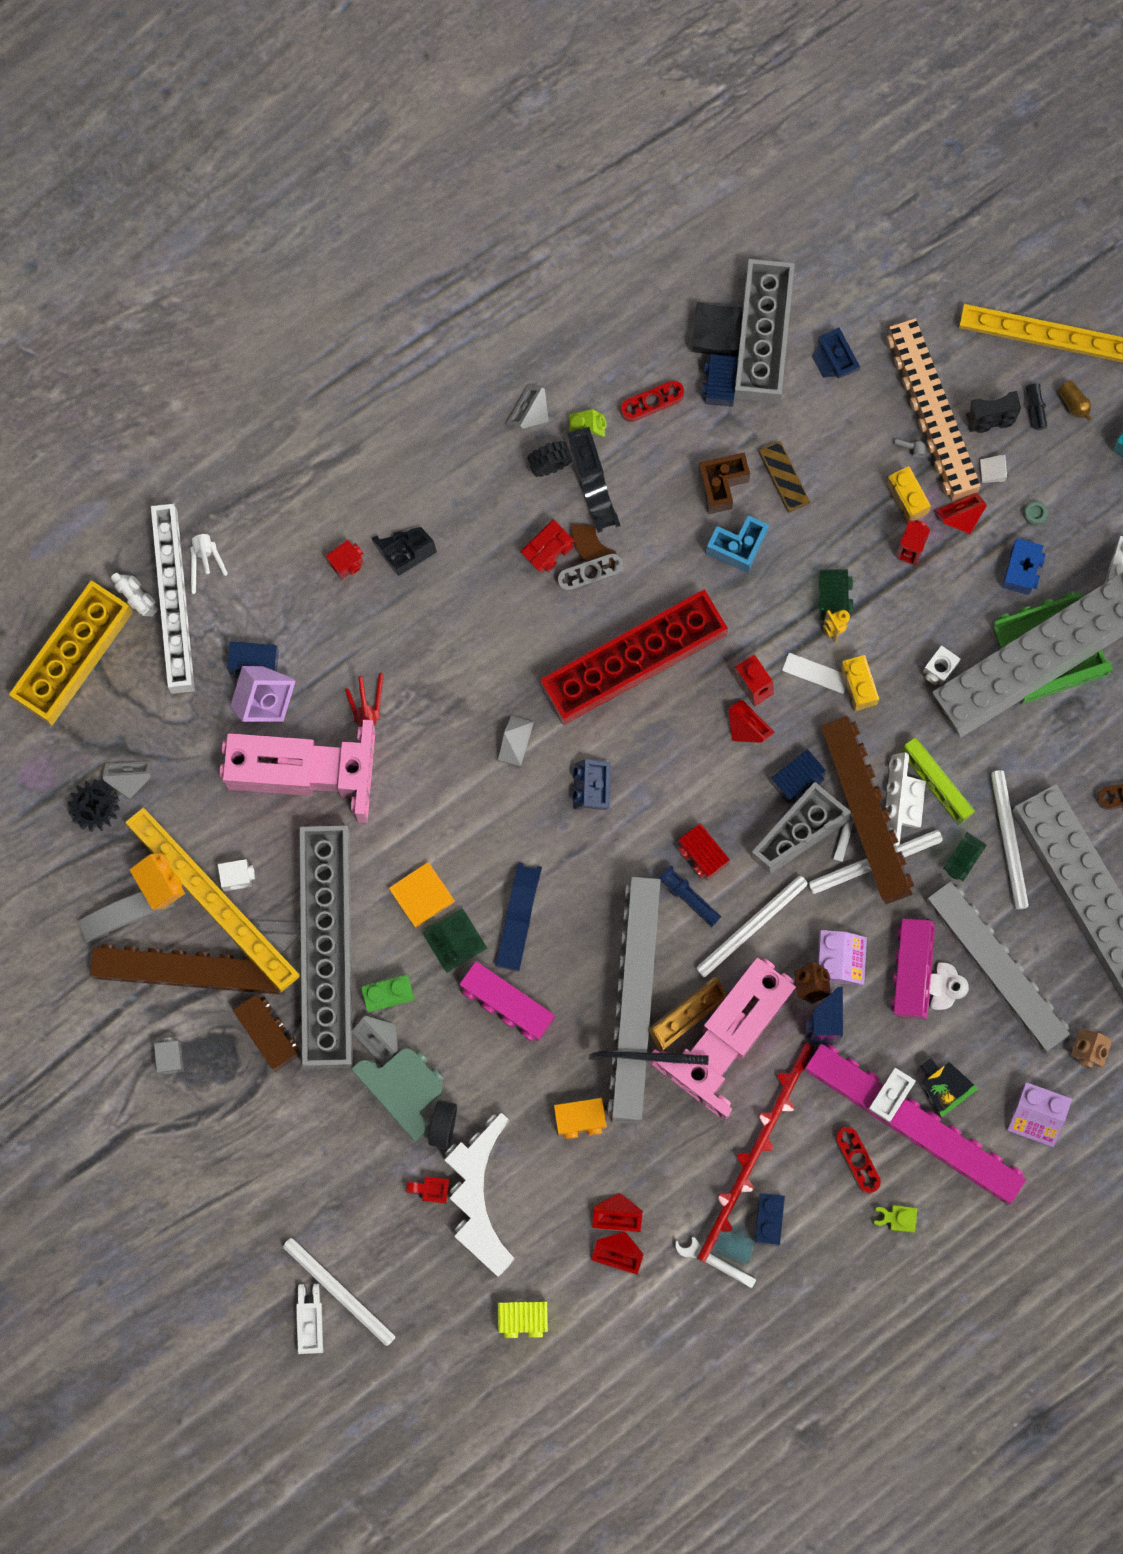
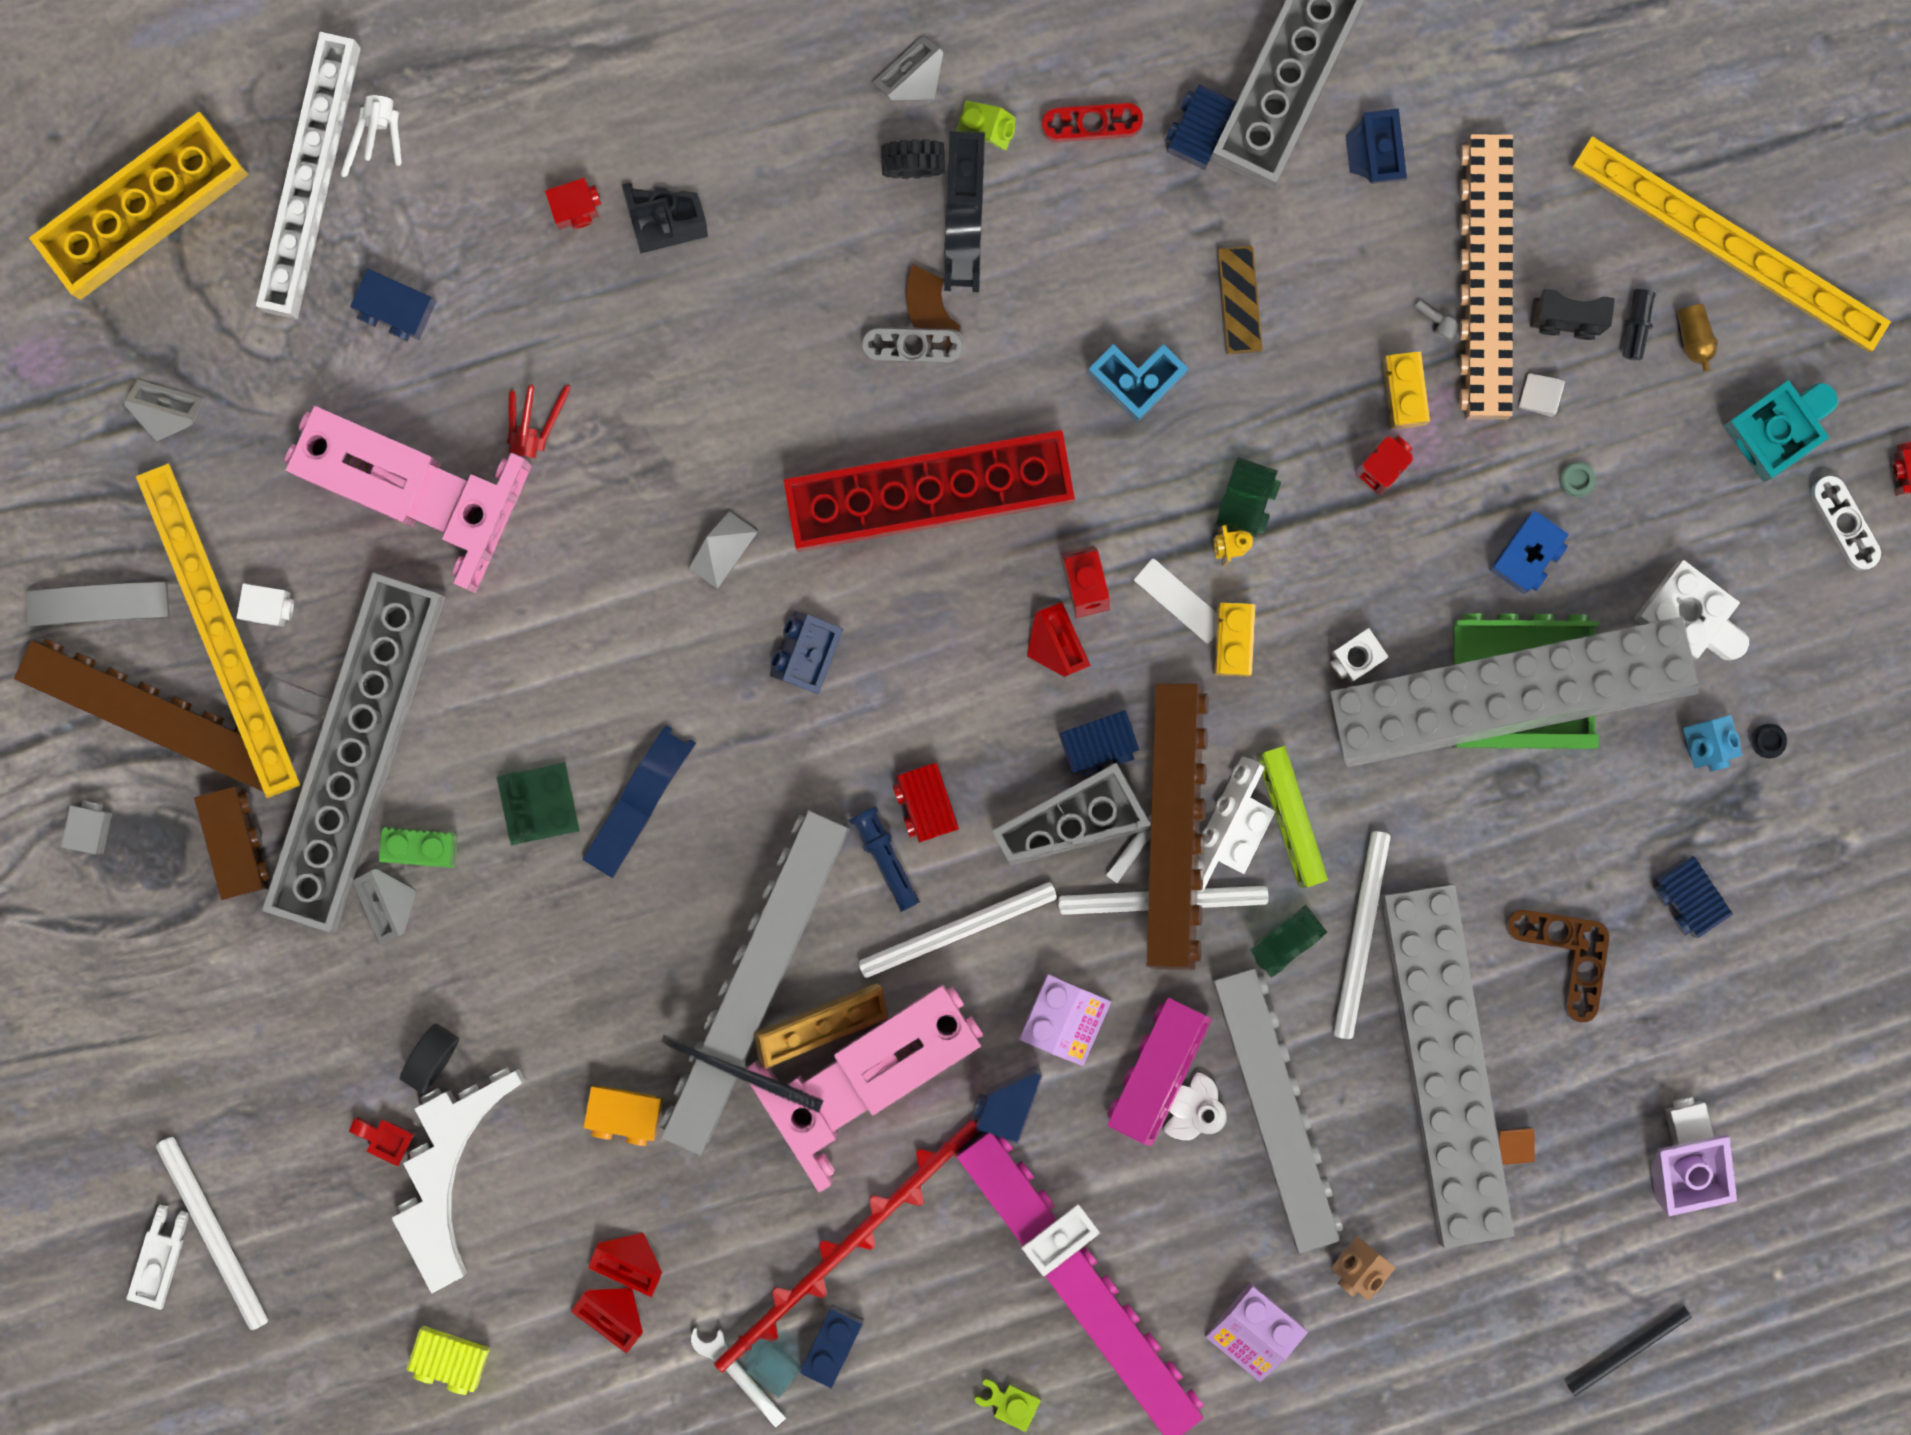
camera: 20 degrees right, 10 degrees up
(85, 807) = (100, 422): black gear -> none
(136, 597) = (256, 151): white plate -> none
(157, 881) = (149, 579): light orange piece -> none
(262, 695) = (386, 362): lavender slope -> none
(403, 1088) = (393, 987): sand green brick -> none
(421, 895) = (514, 723): light orange tile -> none
(507, 1002) = (579, 916): dark pink brick -> none
(548, 546) = (865, 287): red brick -> none
(717, 329) = (1222, 49): black brick -> none
(719, 476) = (1144, 268): reddish brown brick -> none
(812, 982) = (1006, 1047): reddish brown brick -> none
(871, 1174) = (996, 1330): red beam -> none
(945, 1087) = (1141, 1250): torso -> none
(962, 513) = (1473, 443): red slope -> none

